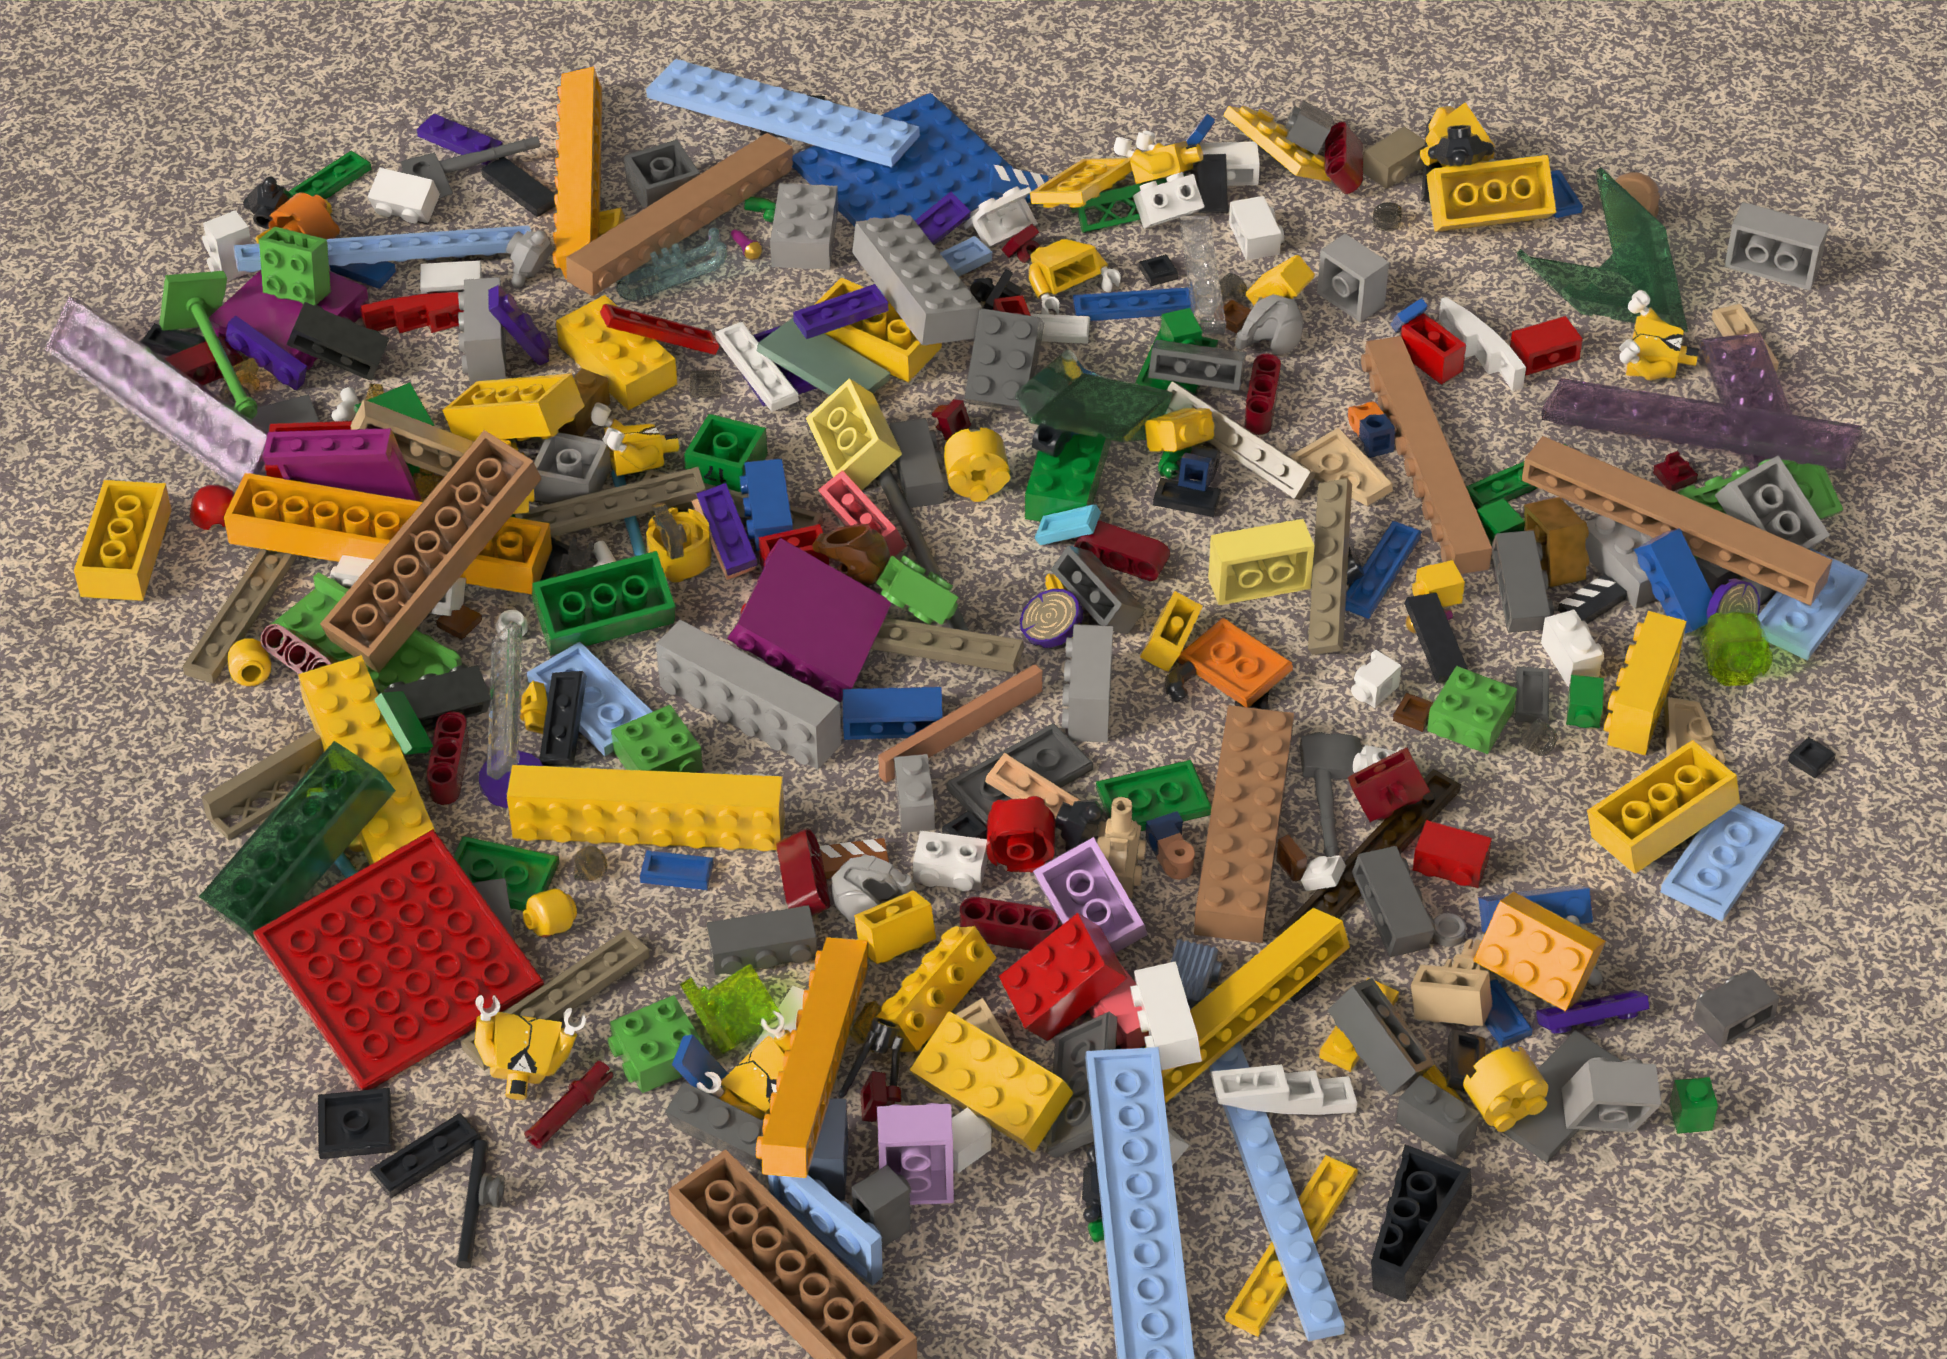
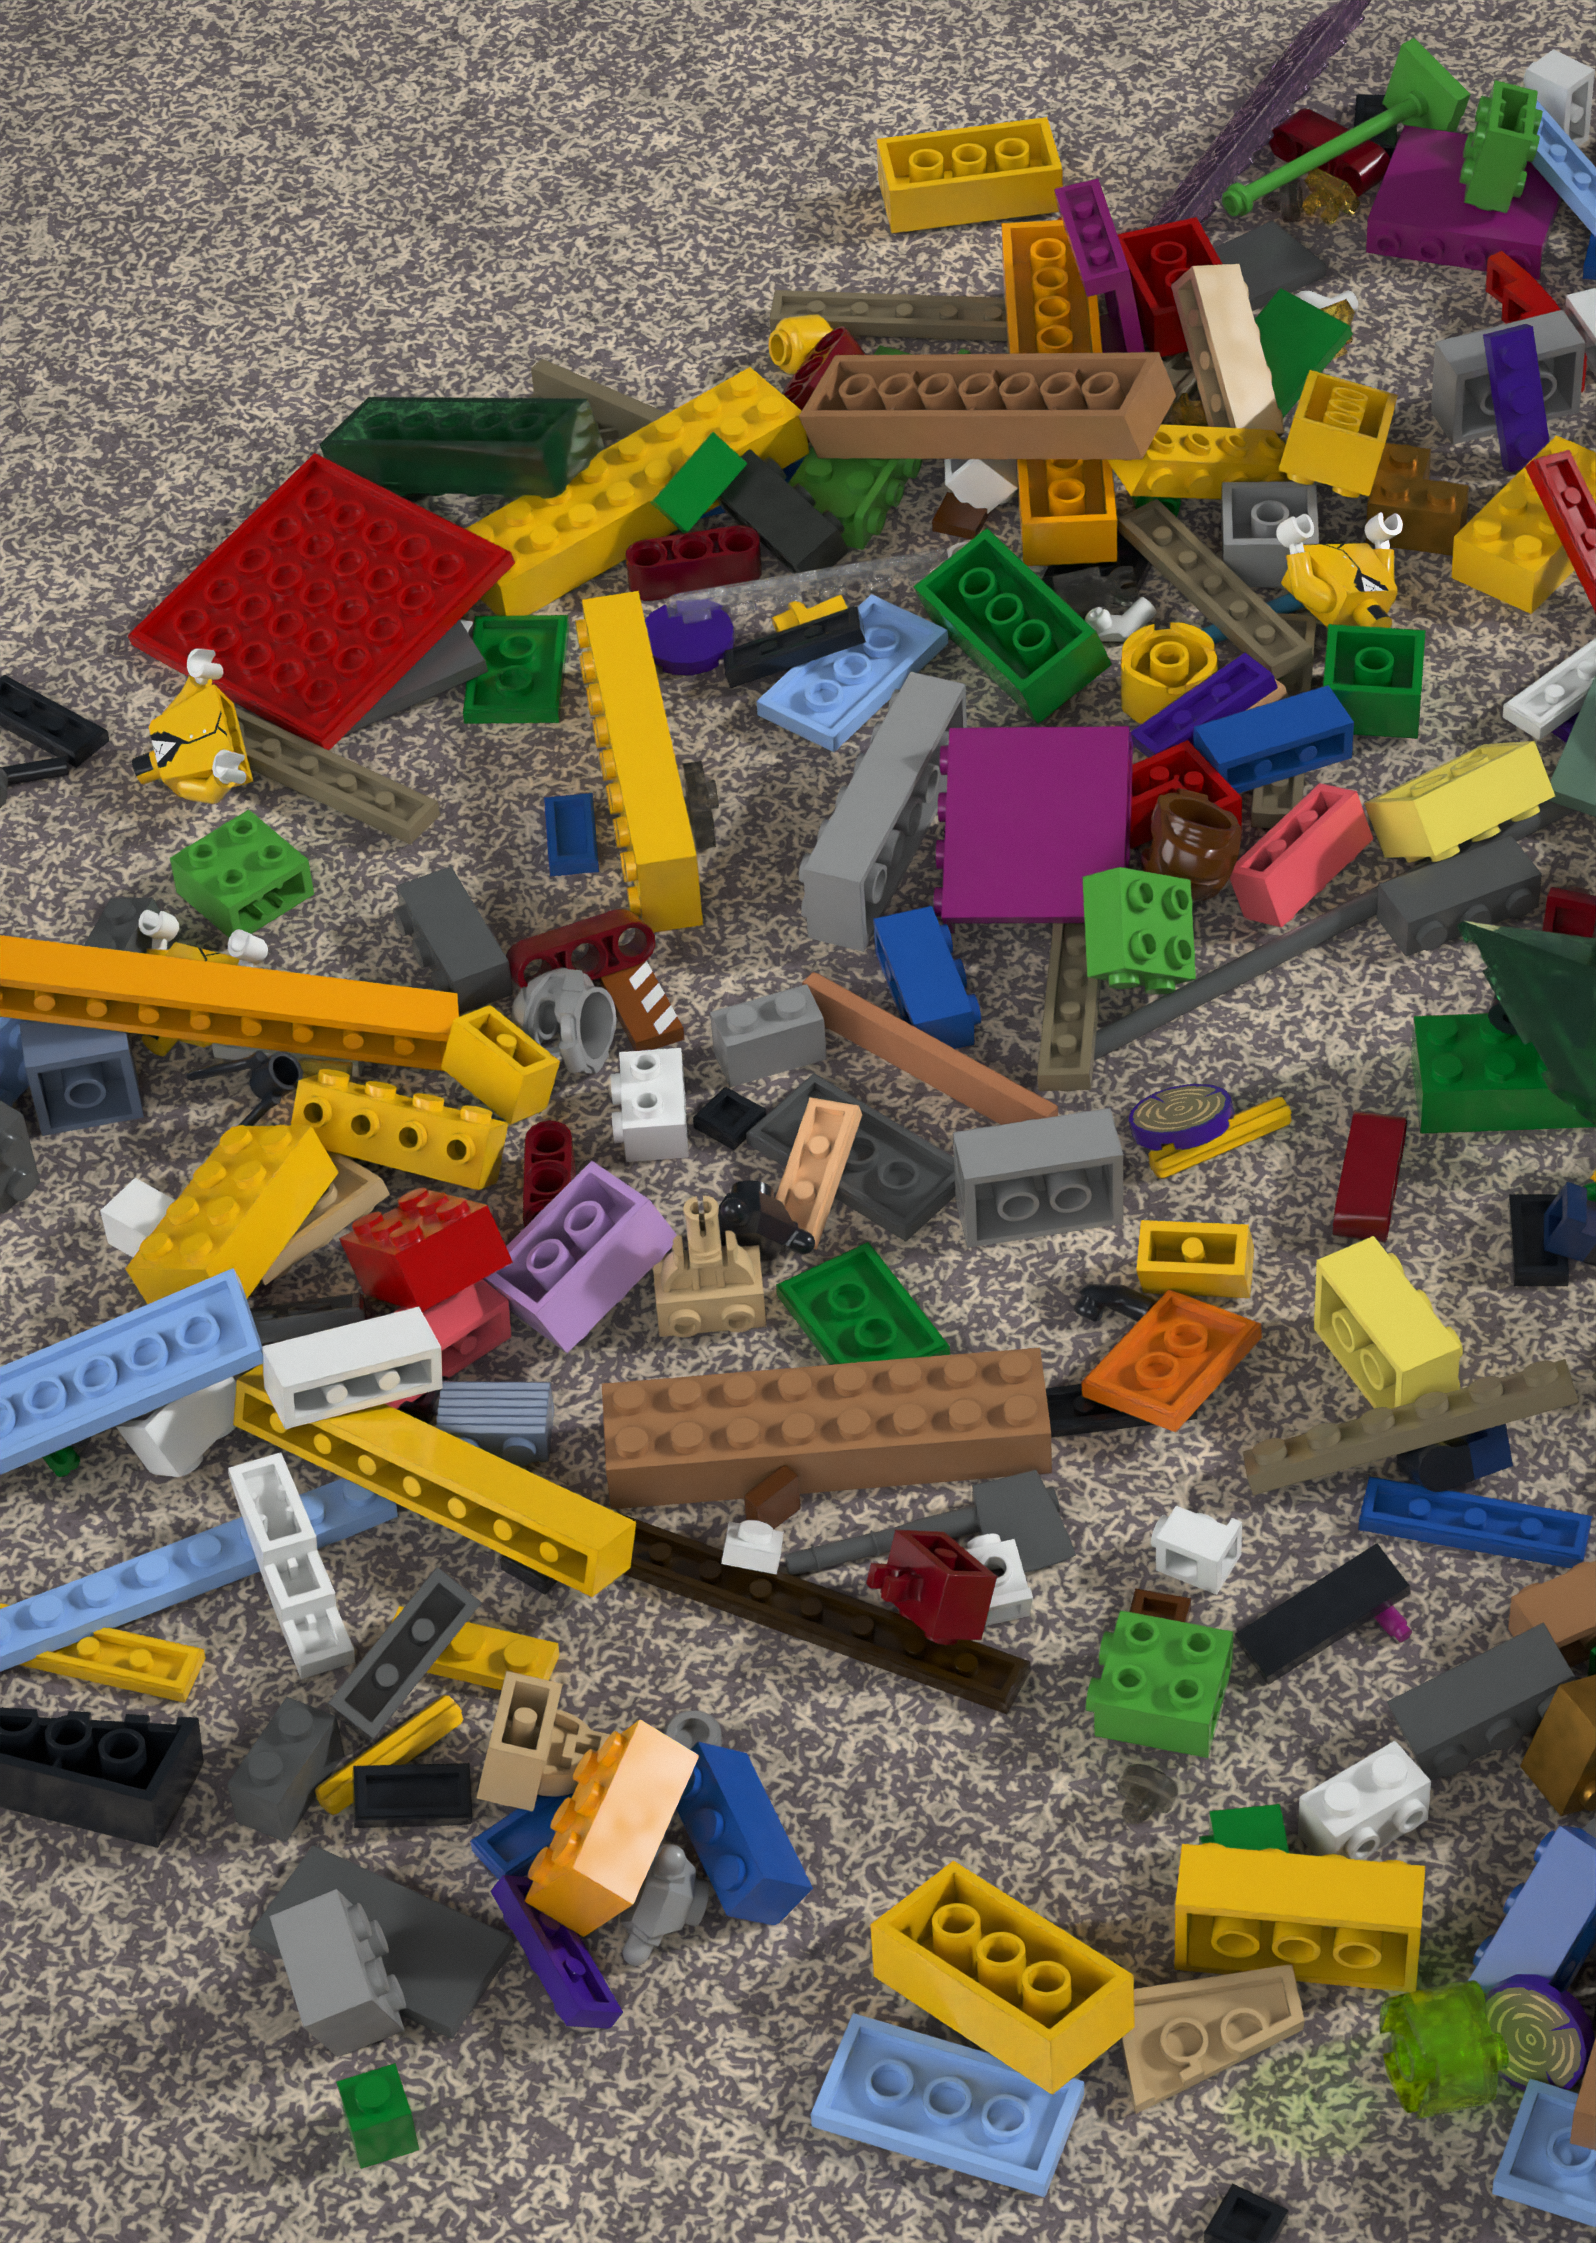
camera: 80 degrees right, 0 degrees up
(266, 353) = (1361, 194): dark purple plate -> none
(337, 341) = (1416, 246): pearl dark grey brick -> none
(354, 1123) = (78, 647): black tile -> none
(549, 913) = (448, 723): yellow head -> none
(579, 1094) = (154, 829): dark red pin -> none
(589, 864) = (548, 742): clear smoke tile -> none
(657, 743) = (765, 751): bright green brick -> none
(671, 533) = (1137, 633): clear smoke plate -> none
(694, 1061) = (195, 905): blue tile -> none
(705, 384) = (1538, 639): clear smoke tile -> none
(732, 1007) = (313, 925): clear neon green bracket -> none
(877, 1094) = (203, 1117): dark red tile -> none
(919, 1147) = (65, 1149): lavender brick -> none
(976, 463) = (1449, 963): yellow brick -> none
(1020, 834) = (705, 1152): red brick -> none
(1067, 524) = (1390, 1093): medium azure tile -> none
(1097, 589) = (1257, 1156): dark grey brick -> none
(1167, 844) = (763, 1343): leg -> none
(1393, 901) = (707, 1641): dark grey brick -> none
(1440, 579) = (1451, 1599): yellow brick -> none
(1452, 854) = (838, 1710): red brick -> none
(1506, 1088) = (323, 1827): yellow brick -> none
(1532, 694) = (1253, 1777): dark grey tile -> none
(1594, 599) = (1501, 1828): black tile -> none
(1735, 1007) = (607, 2157): flat silver brick -> none

